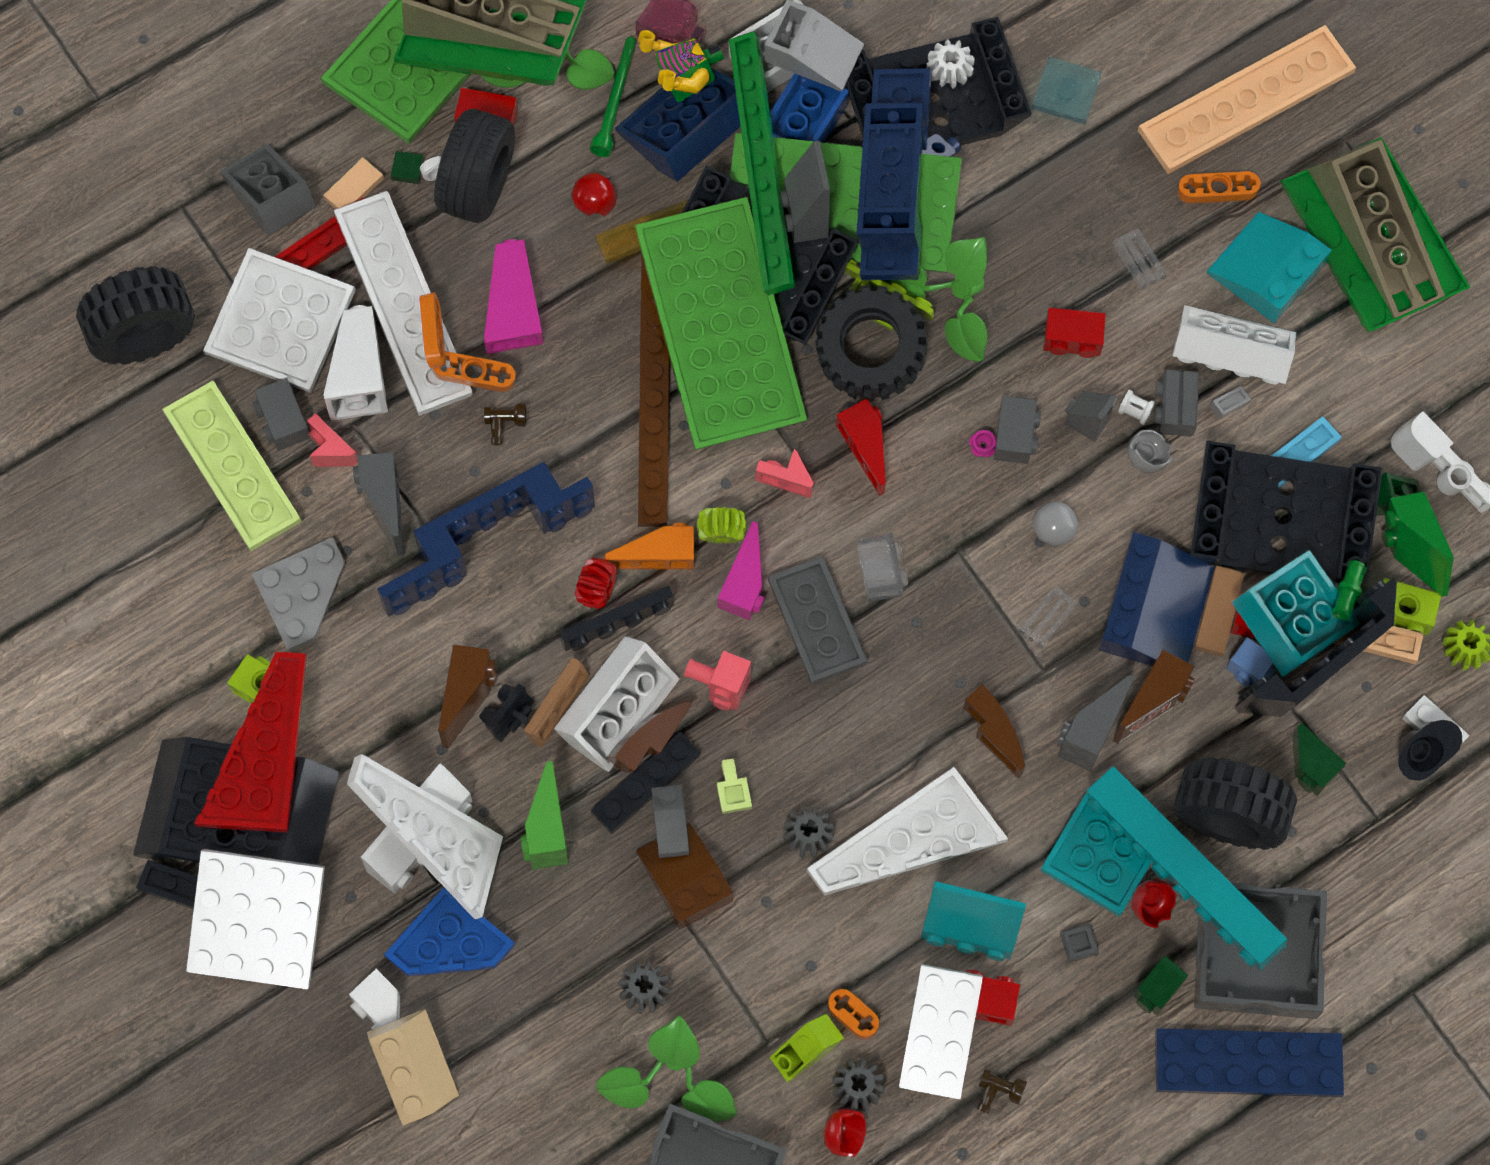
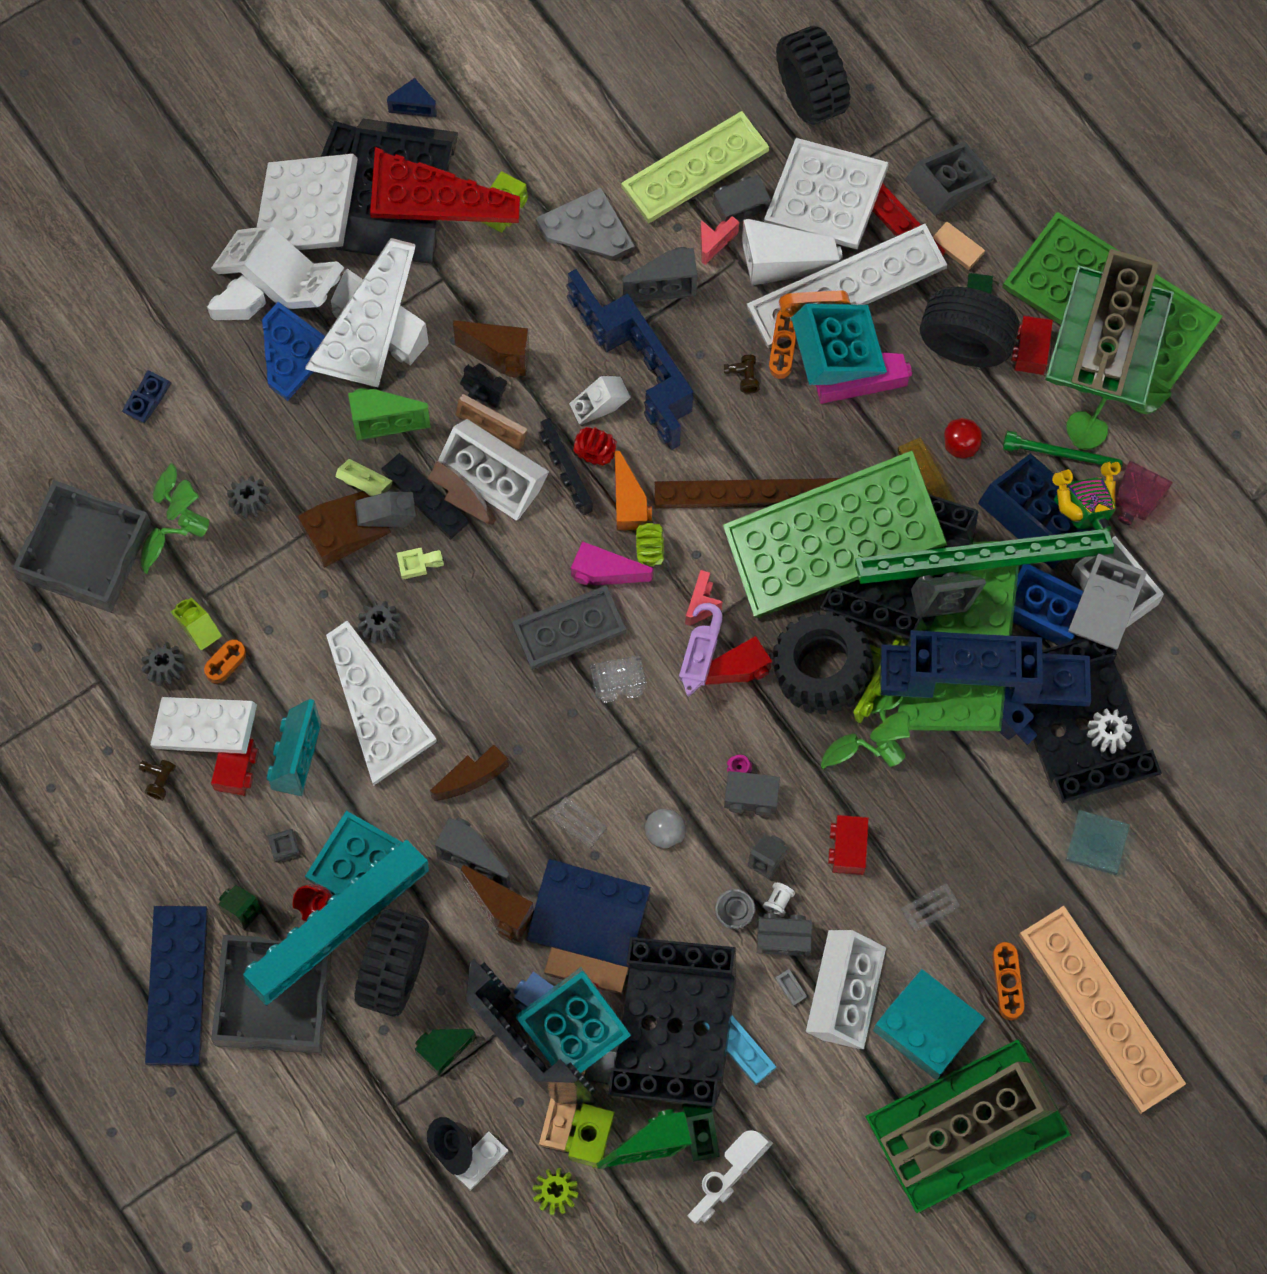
camera: 90 degrees right, 0 degrees up
(113, 791) = (412, 100): none -> dark blue slope
(345, 949) = (278, 268): none -> white bracket
(413, 1066) = (182, 322): tan slope -> none
(485, 308) = (837, 343): none -> teal slope
(502, 1118) = (147, 397): none -> dark blue slope
(533, 579) = (600, 399): none -> white slope
(624, 850) = (363, 478): none -> yellowish green plate
(725, 682) = (508, 548): coral brick -> none
(845, 1132) = (123, 652): red hair -> none
(857, 469) = (700, 650): none -> lavender plate
(1349, 590) = (594, 1070): green pin -> none

